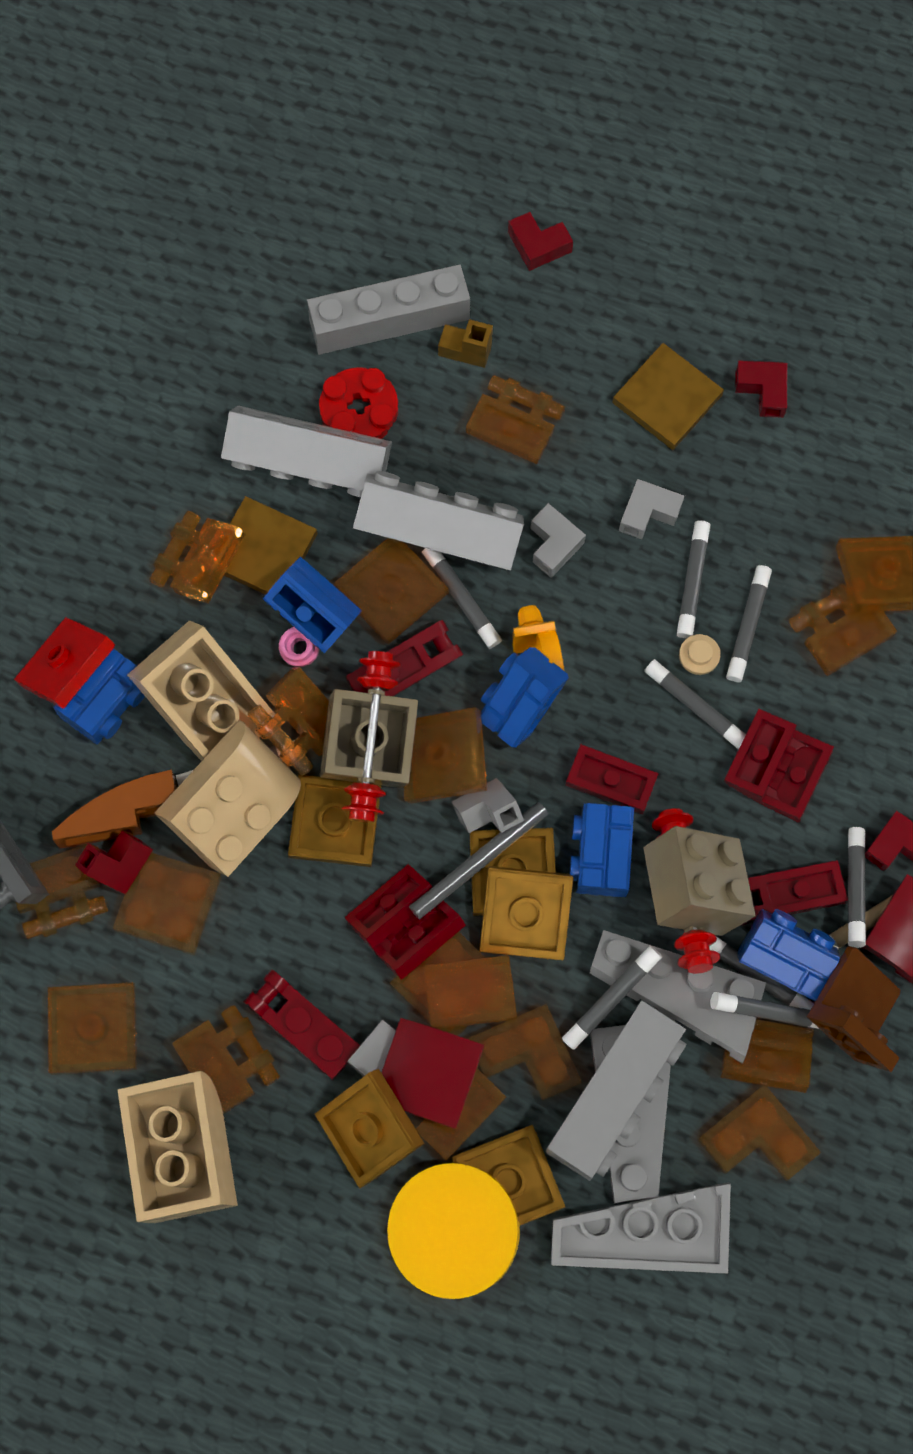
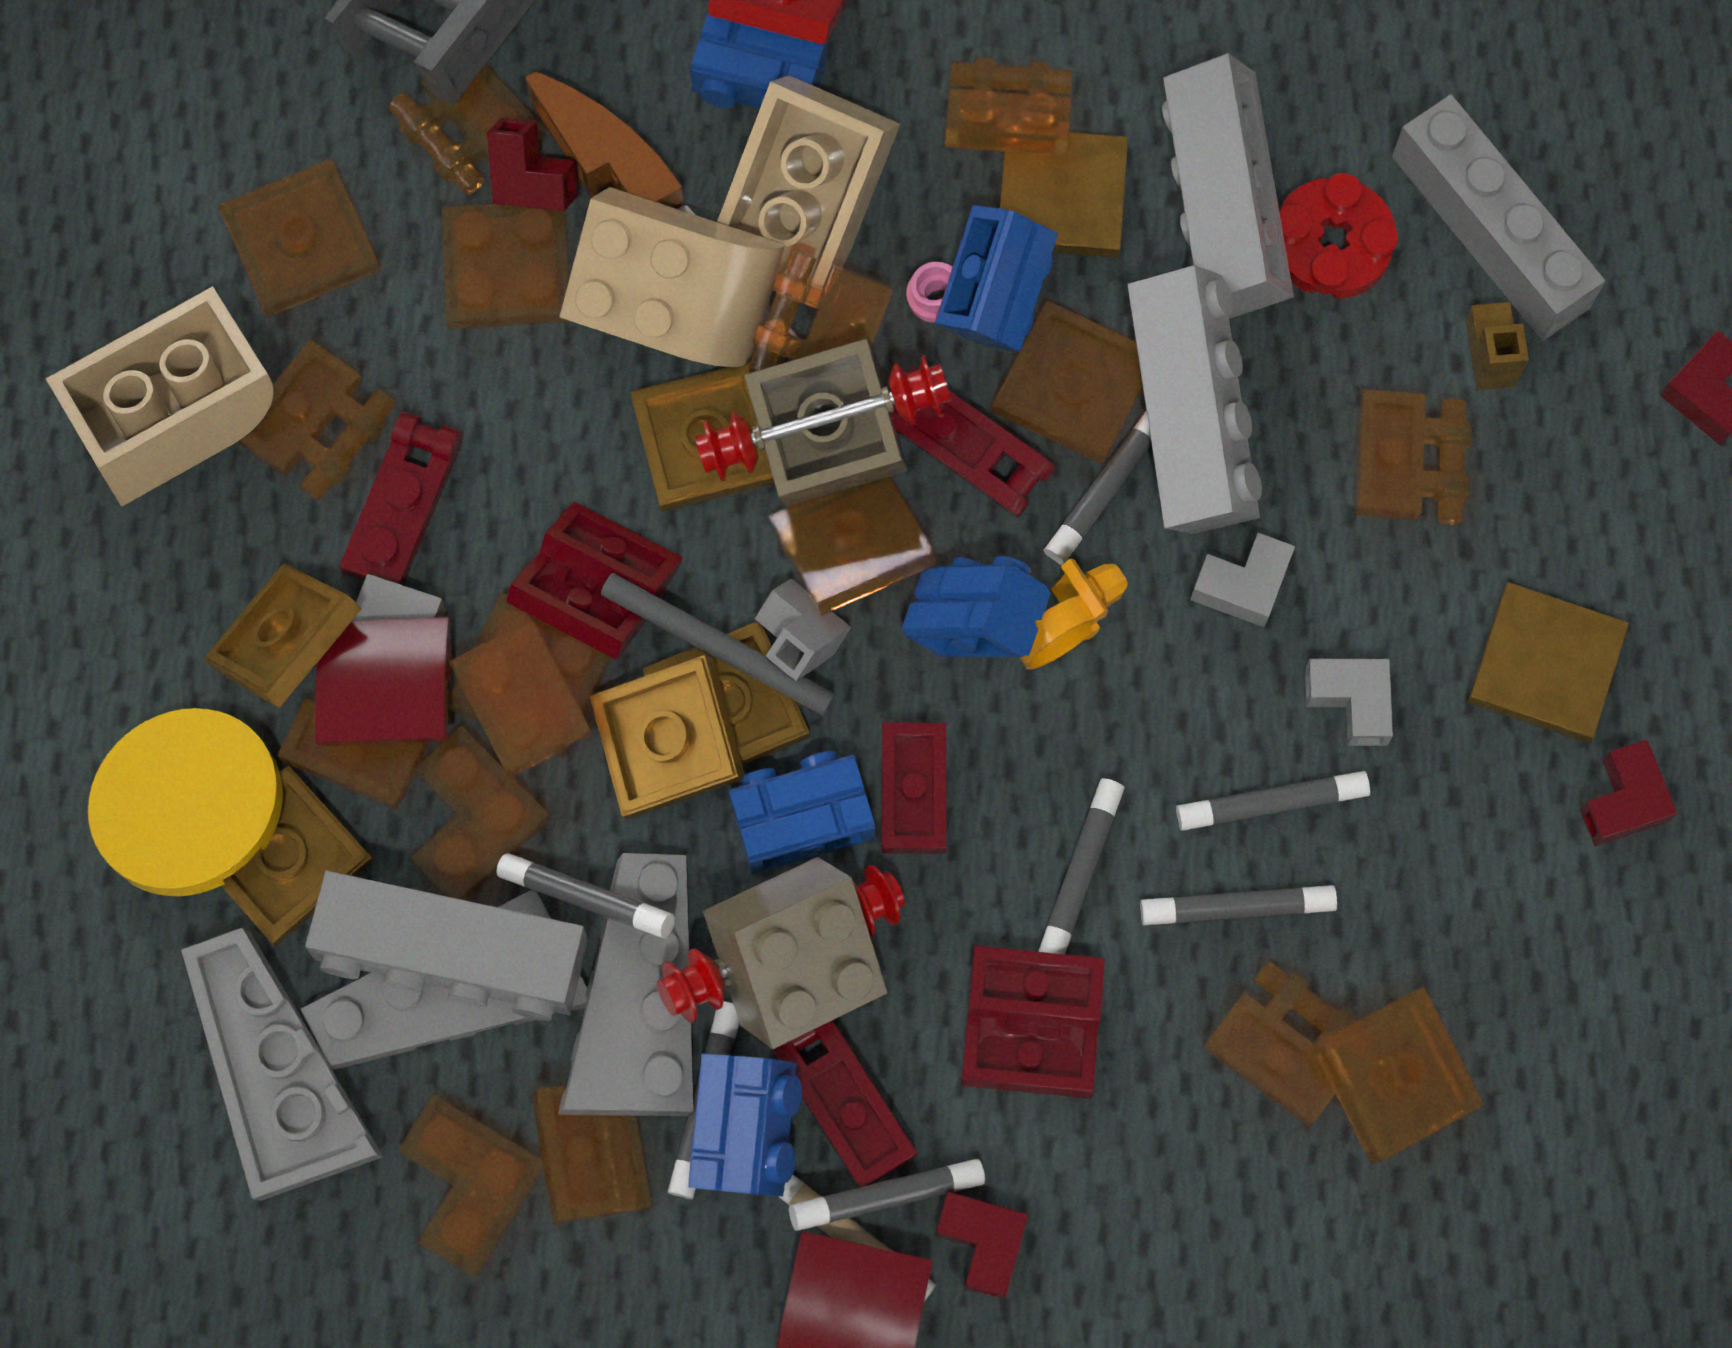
camera: 70 degrees right, 0 degrees up
(699, 654) = (1157, 848): tan plate -> none
(761, 1009) = (648, 1128): dark grey bar -> none
(855, 1008) = (700, 1252): reddish brown bracket -> none

